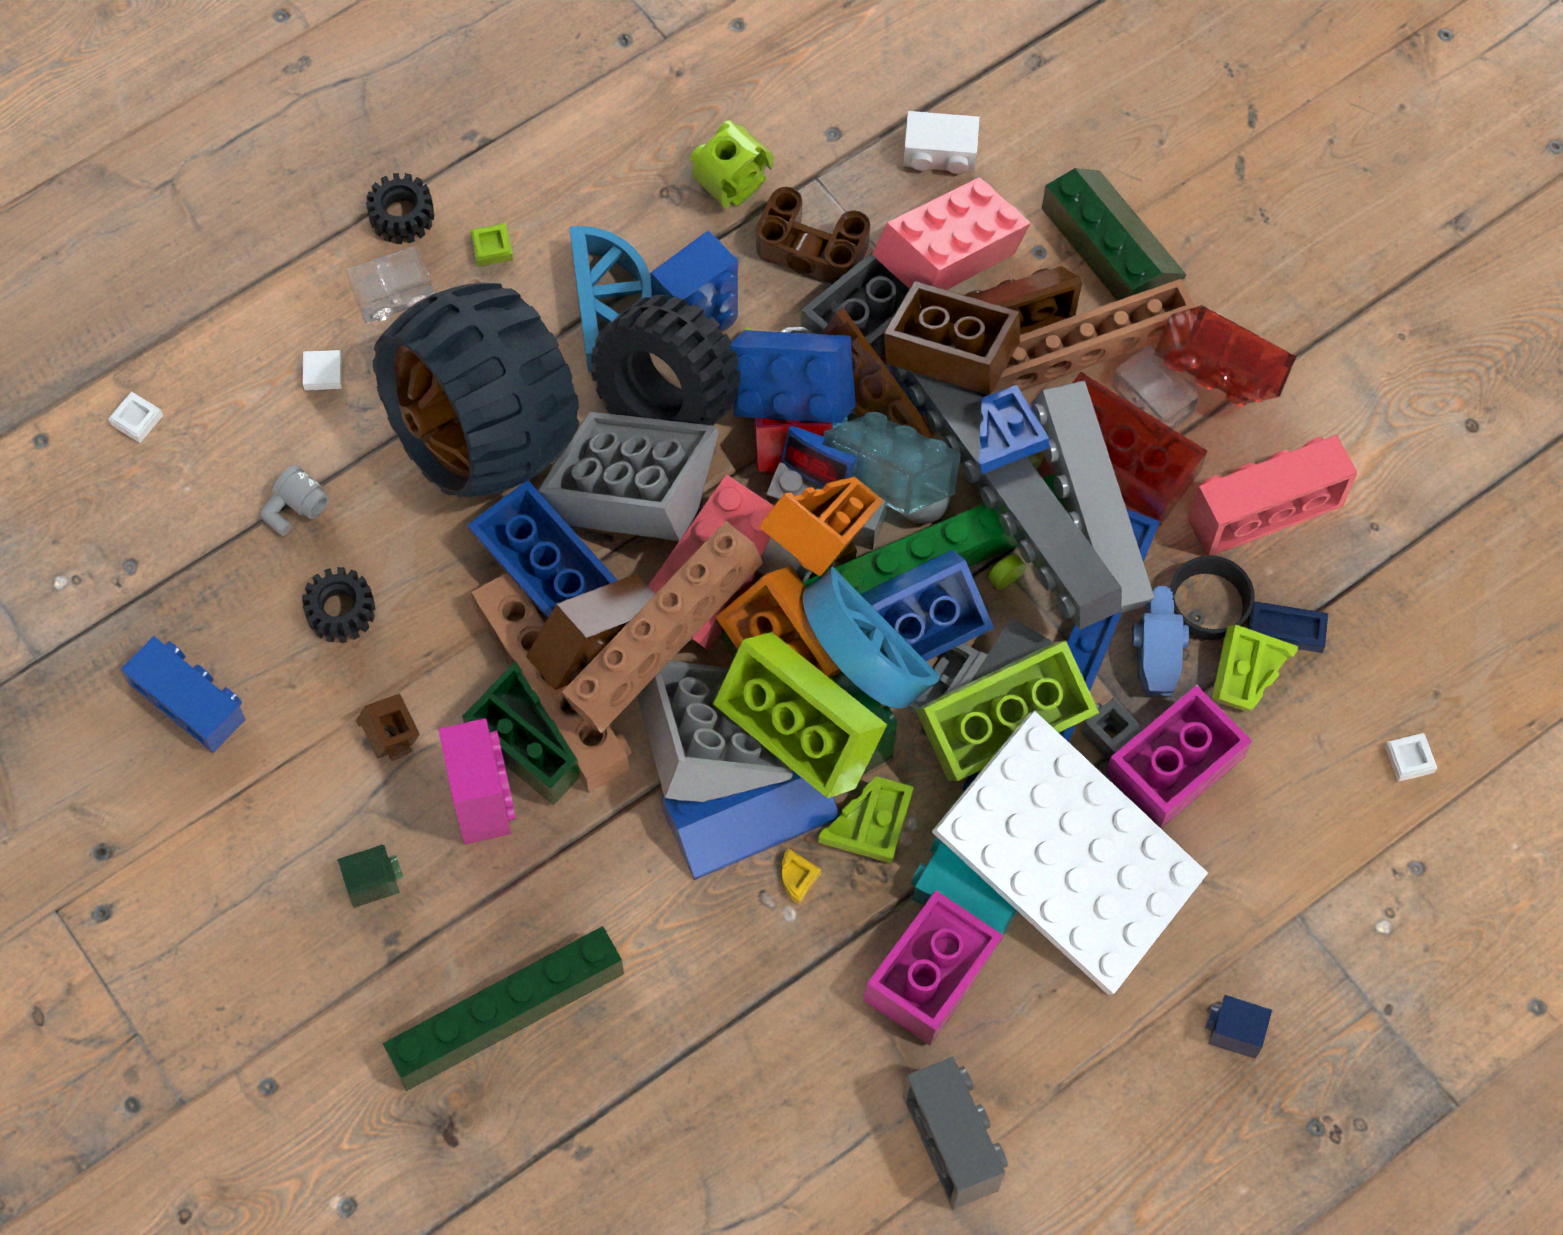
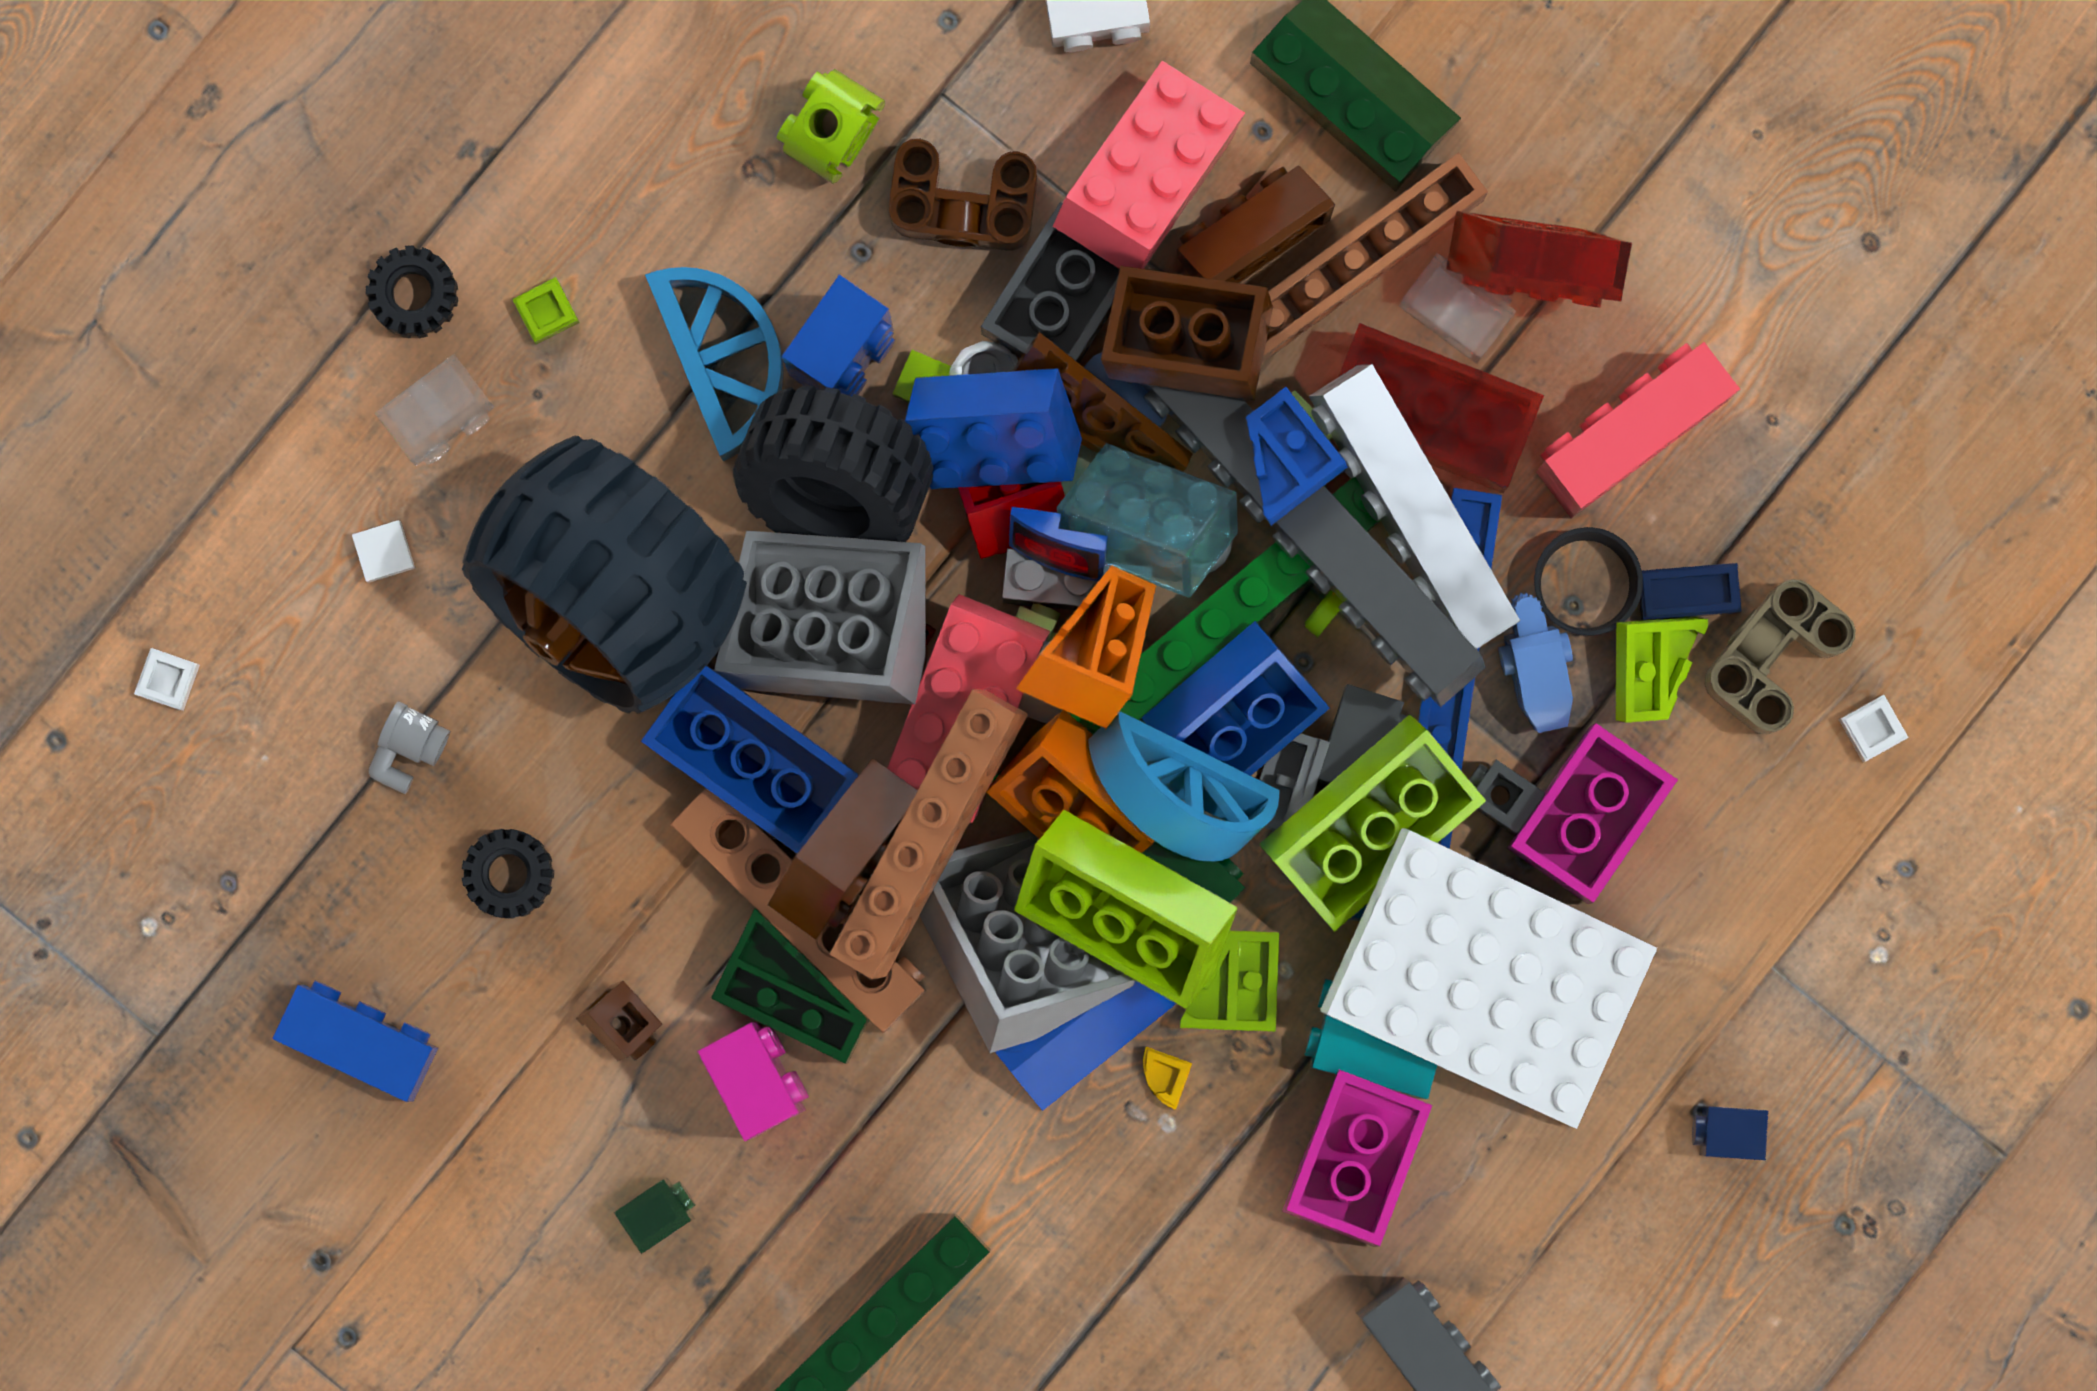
camera: 10 degrees left, 20 degrees up
(1337, 671) = (1761, 642): none -> dark tan beam

